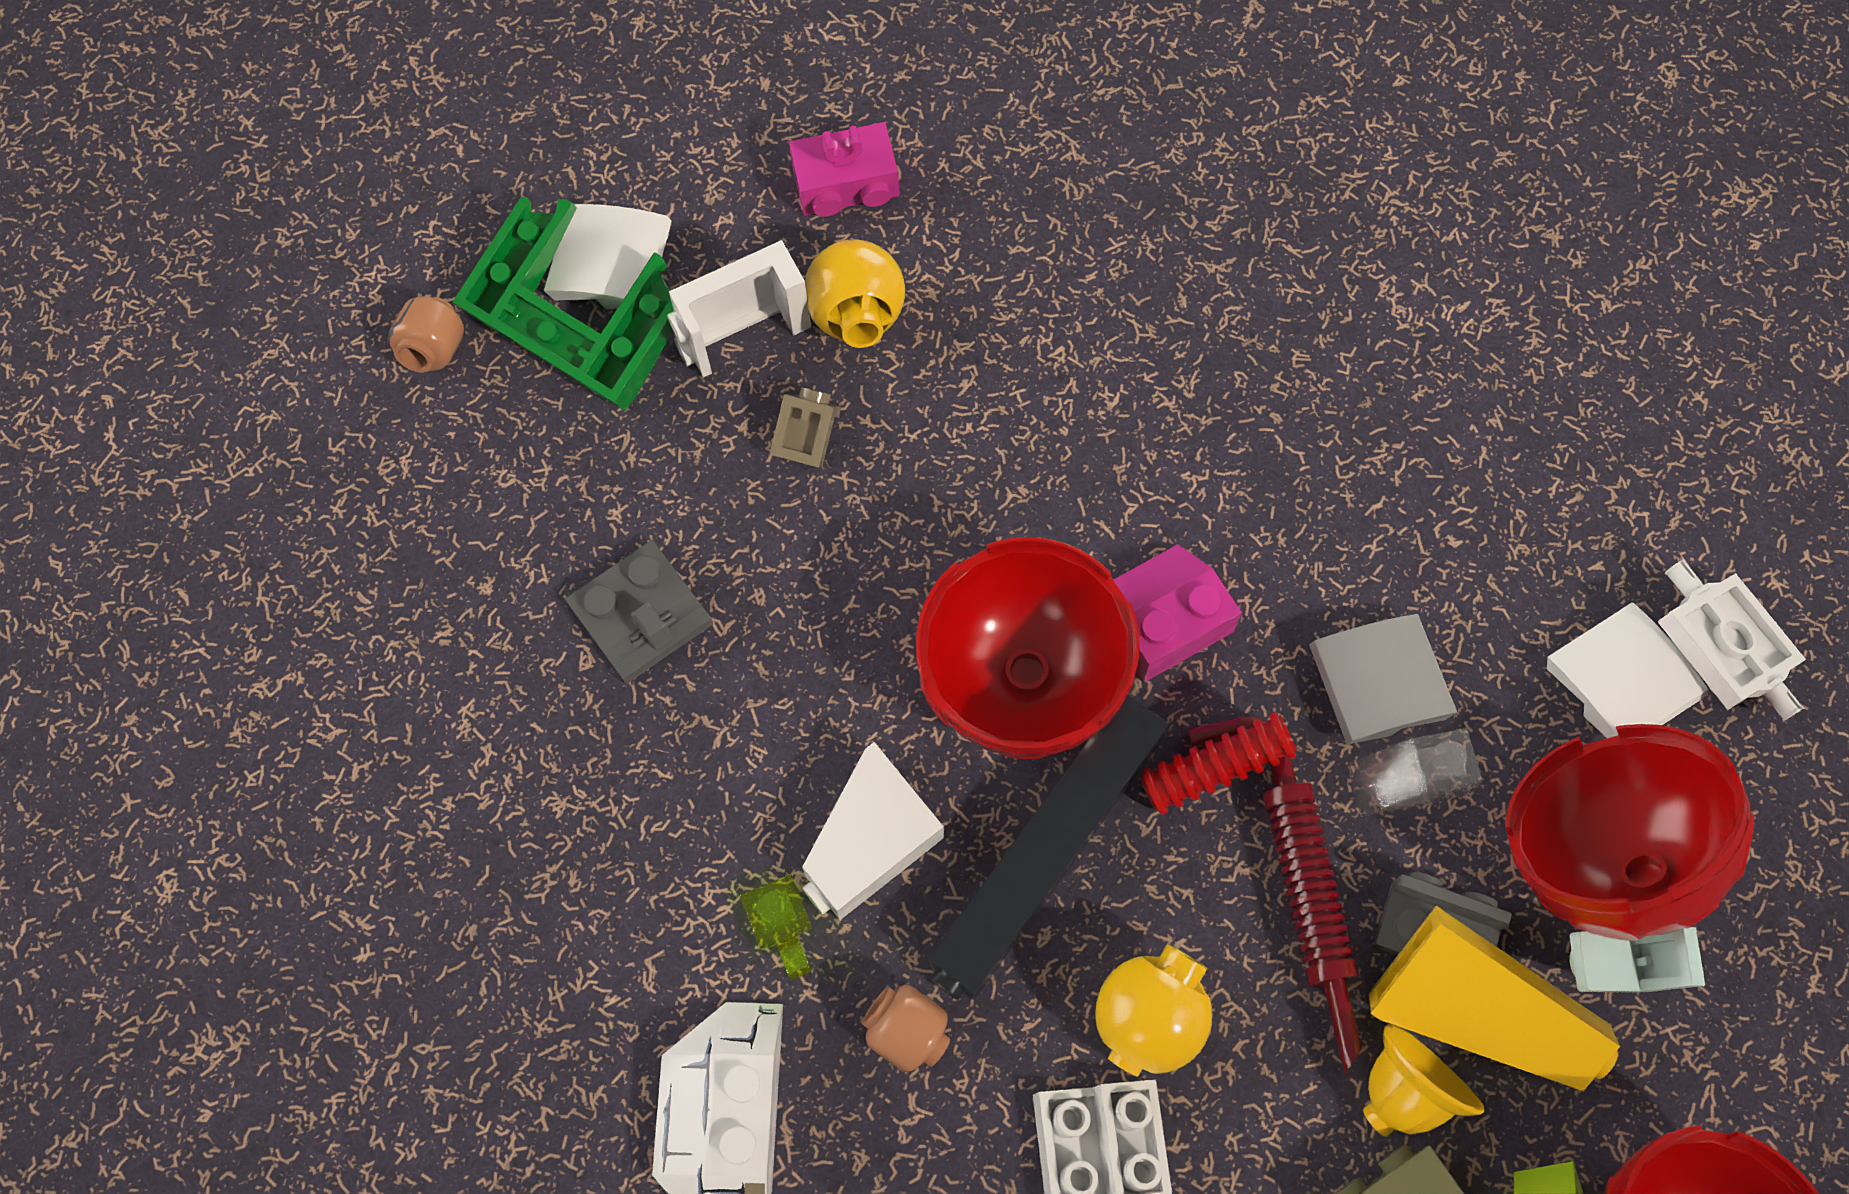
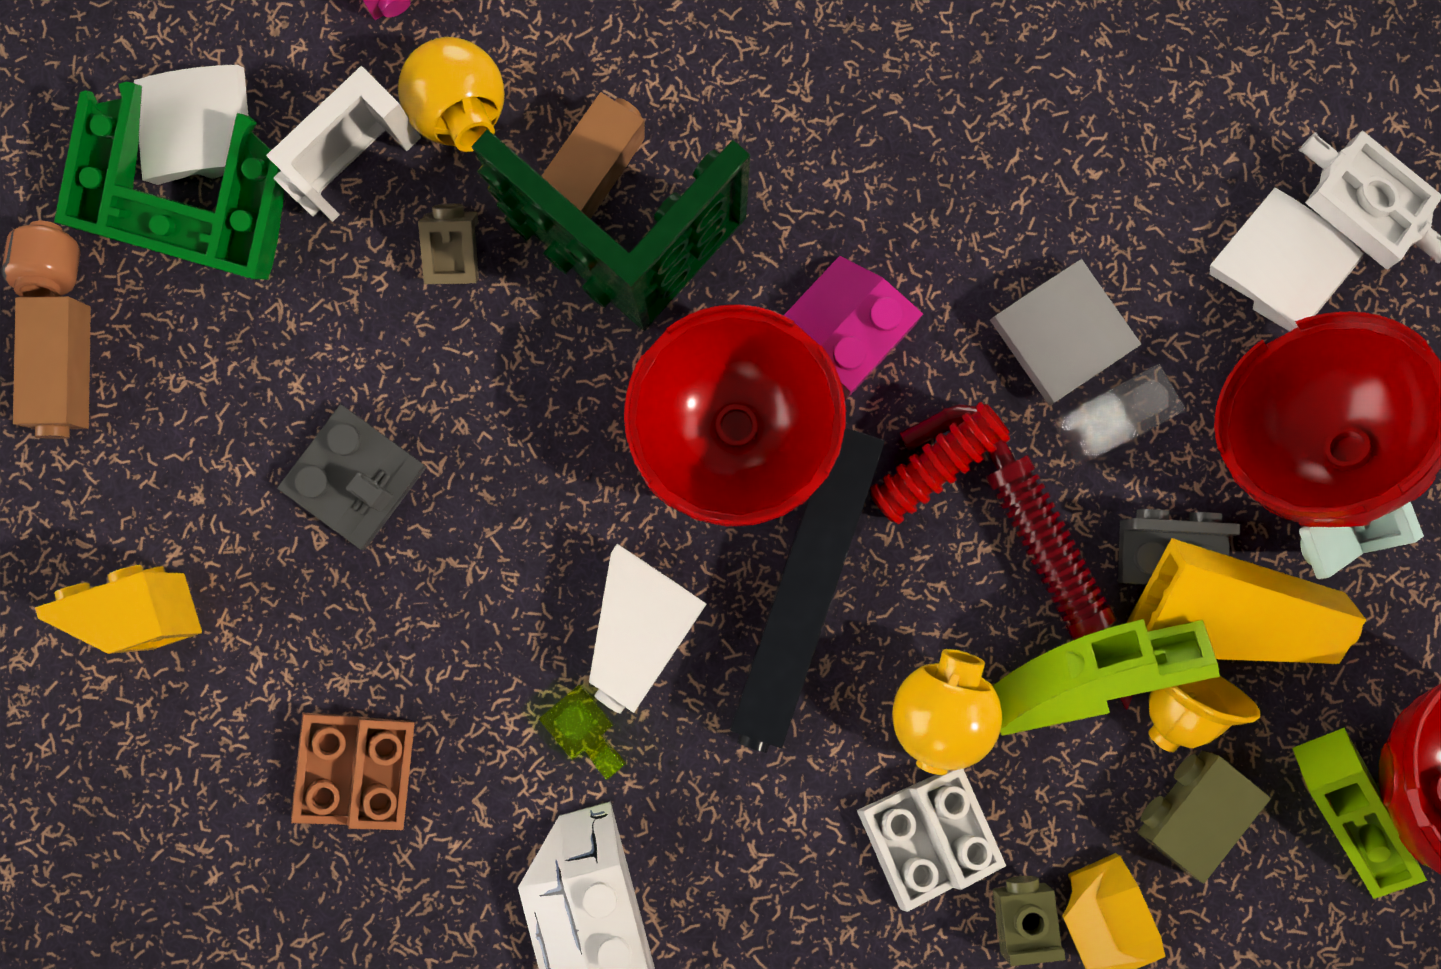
camera: 20 degrees left, 15 degrees up
(389, 660) = (127, 614): none -> yellow slope
(400, 427) = (51, 365): none -> medium nougat brick
(538, 891) = (352, 771): none -> nougat slope
(906, 1028) = (728, 792): nougat head -> none
(960, 391) = (596, 152): none -> medium nougat brick
(1001, 484) = (660, 265): none -> dark green bracket
(1305, 1012) = (1103, 666): none -> lime slope

